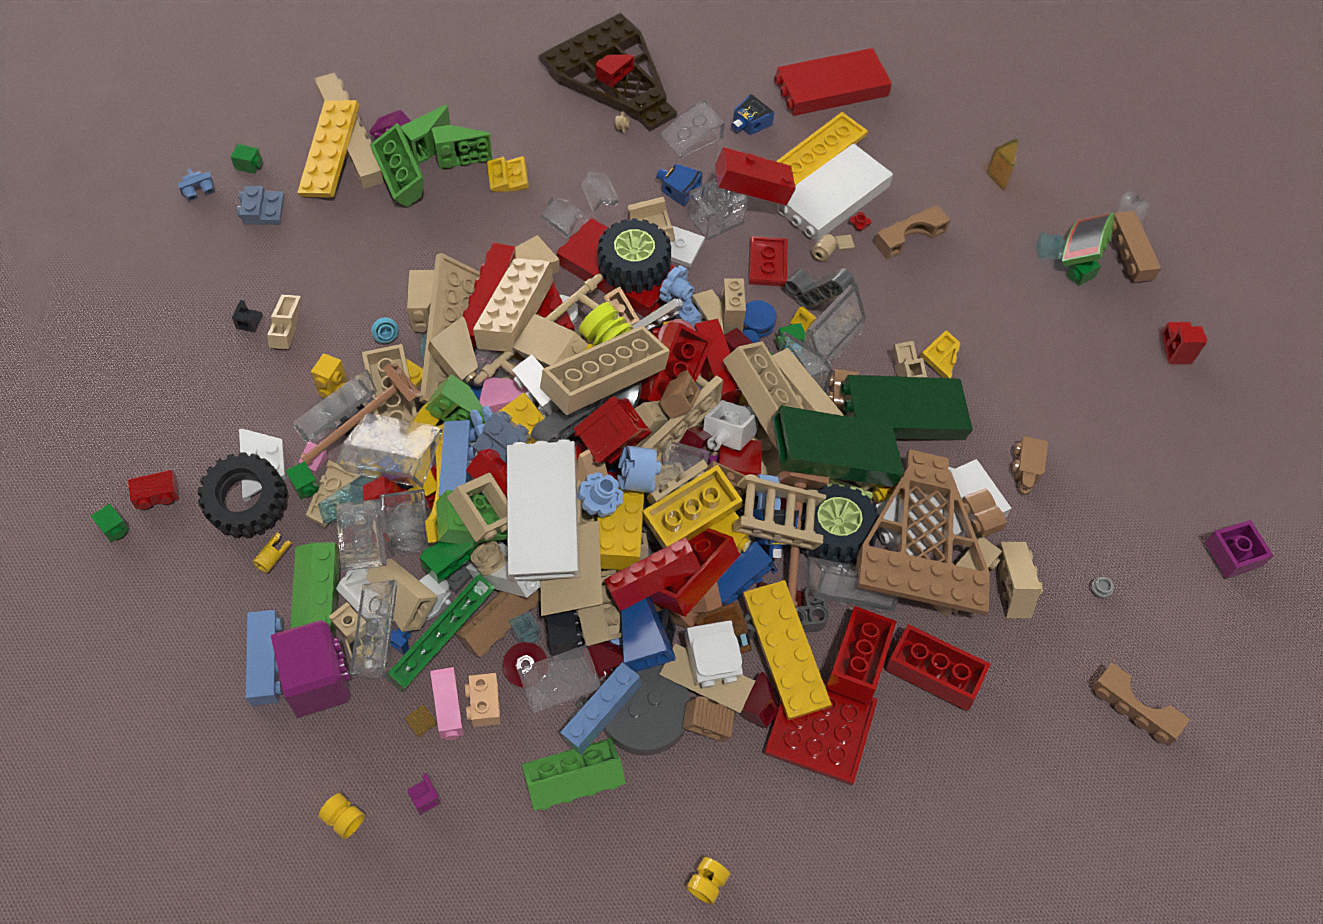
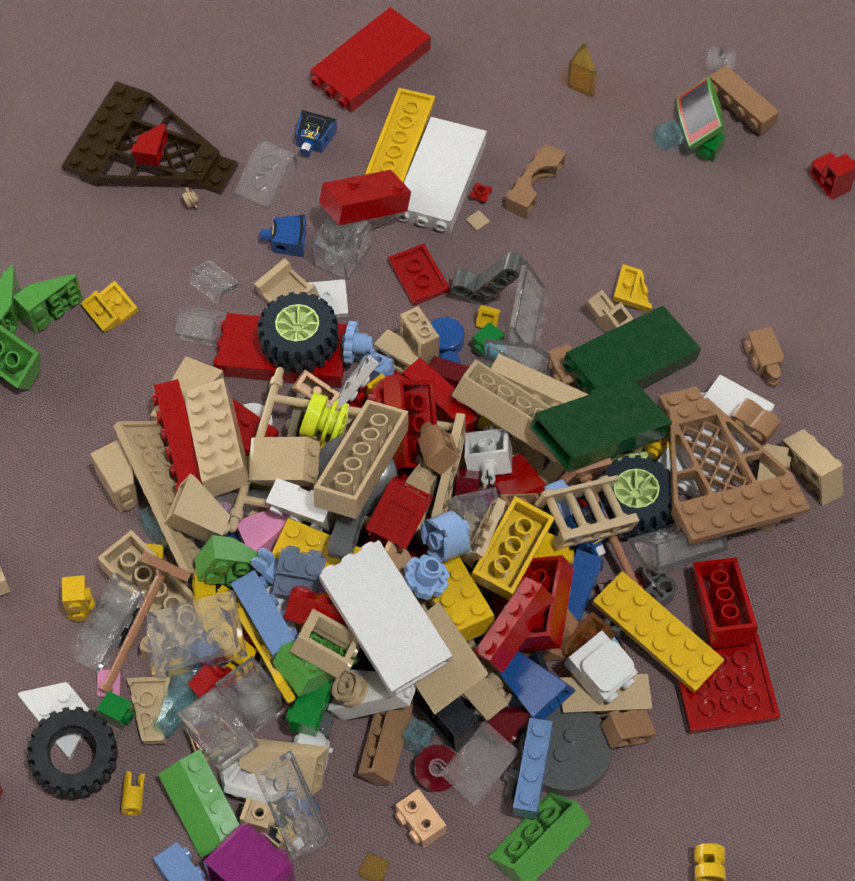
camera: 25 degrees left, 0 degrees up
(385, 330) = (96, 524): medium azure cone -> none
(439, 633) = (344, 778): green brick -> none
(447, 703) = (392, 839): bright pink slope -> none
(761, 703) = (664, 692): dark red slope -> none
(824, 247) = (464, 235): tan brick -> none
(938, 667) = (793, 579): red brick -> none

